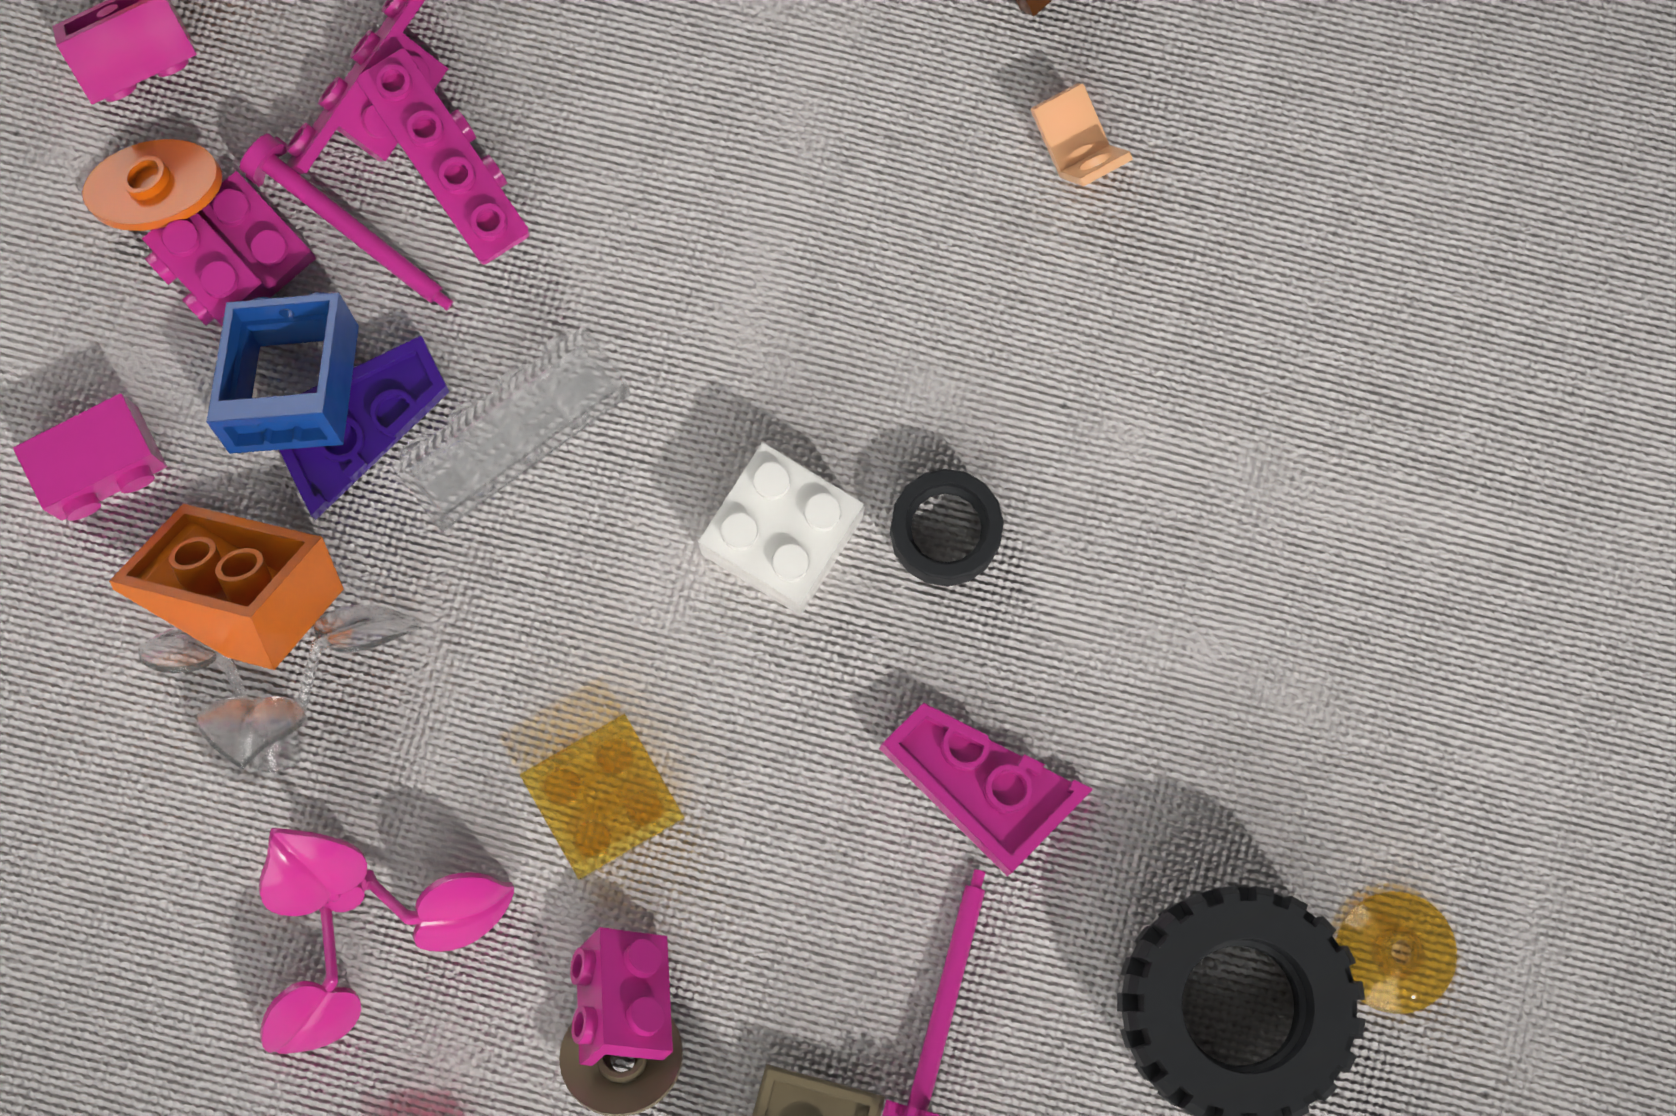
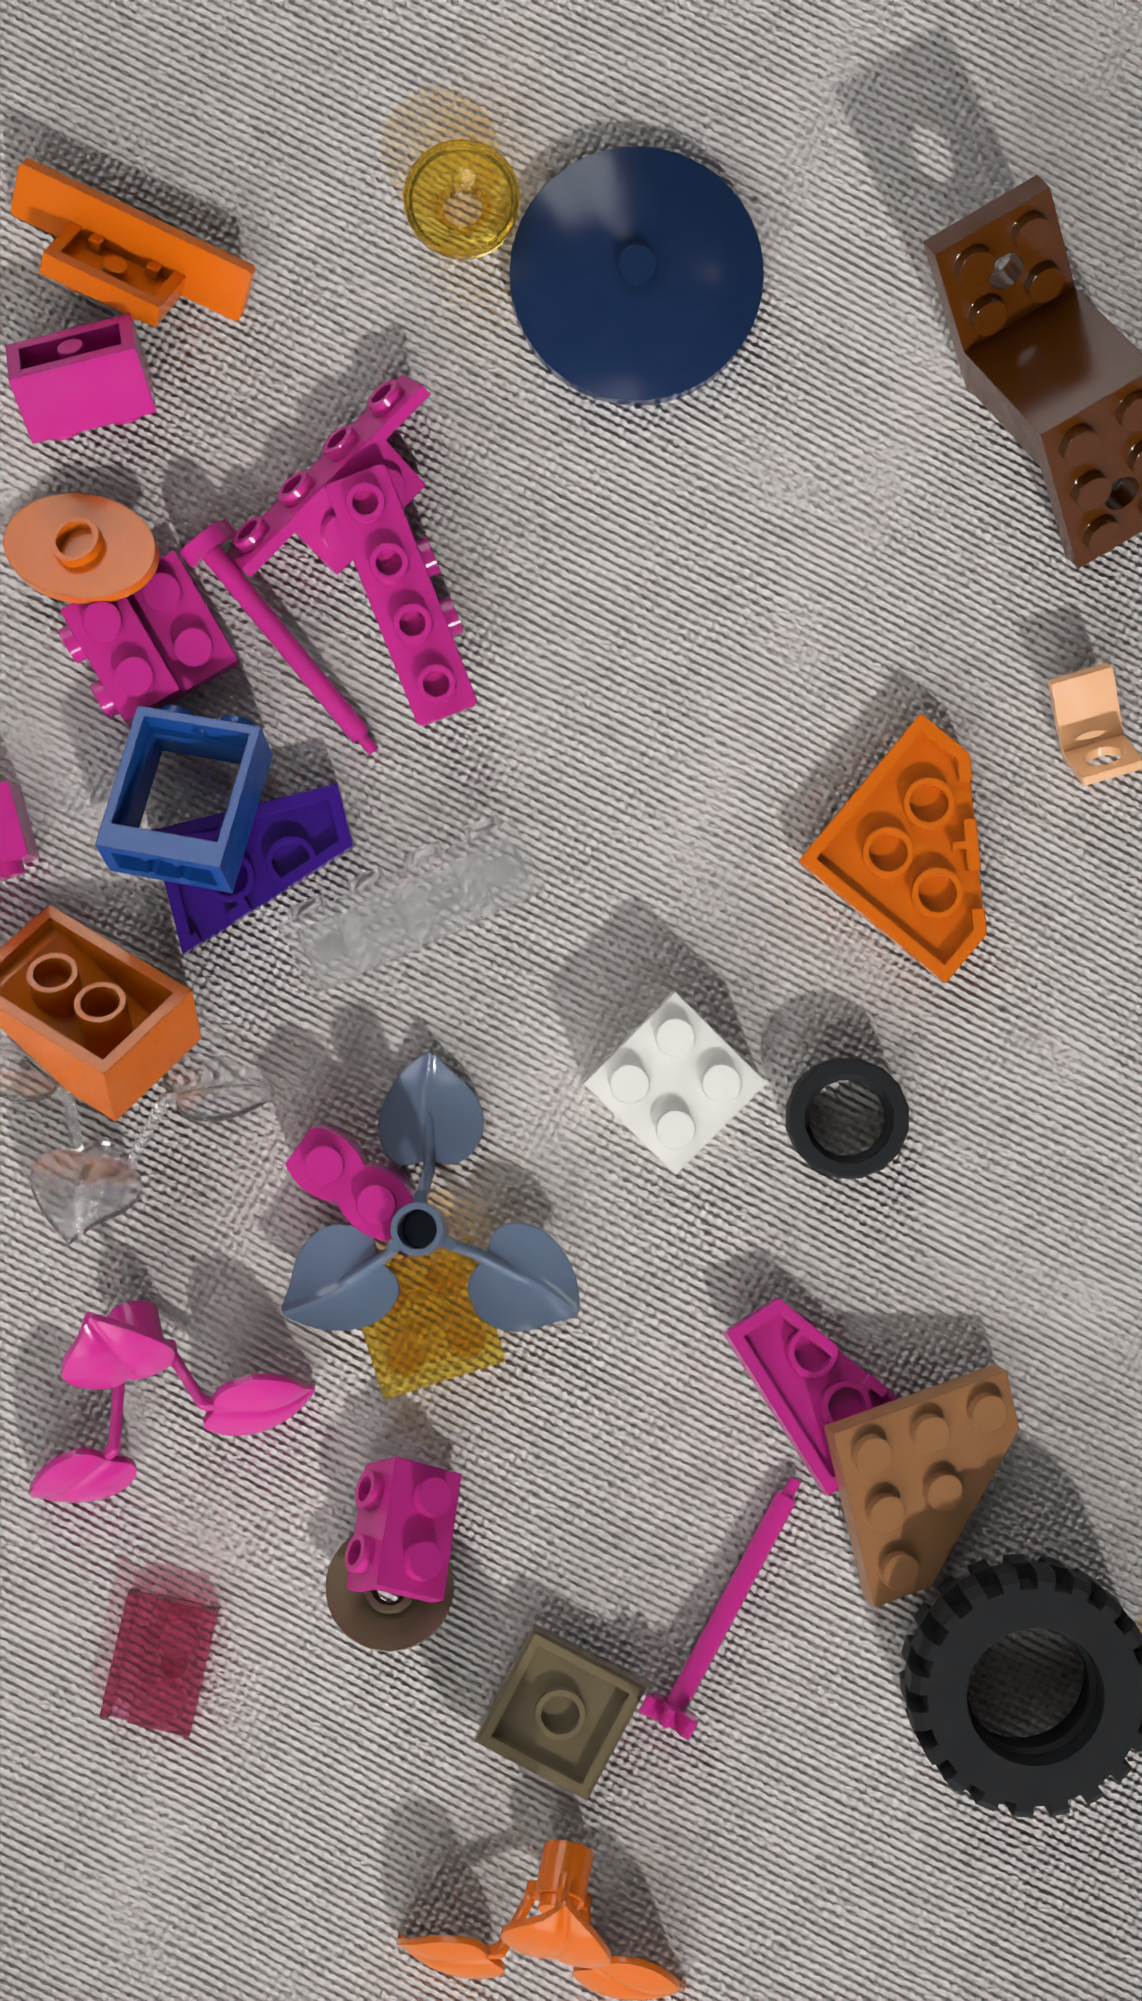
camera: 15 degrees right, 10 degrees up
(514, 771) = (342, 1277): none -> sand blue plant
(521, 688) = (338, 1170): none -> dark pink brick
(946, 283) = (910, 850): none -> orange plate
(1090, 838) = (917, 1474): none -> medium nougat plate

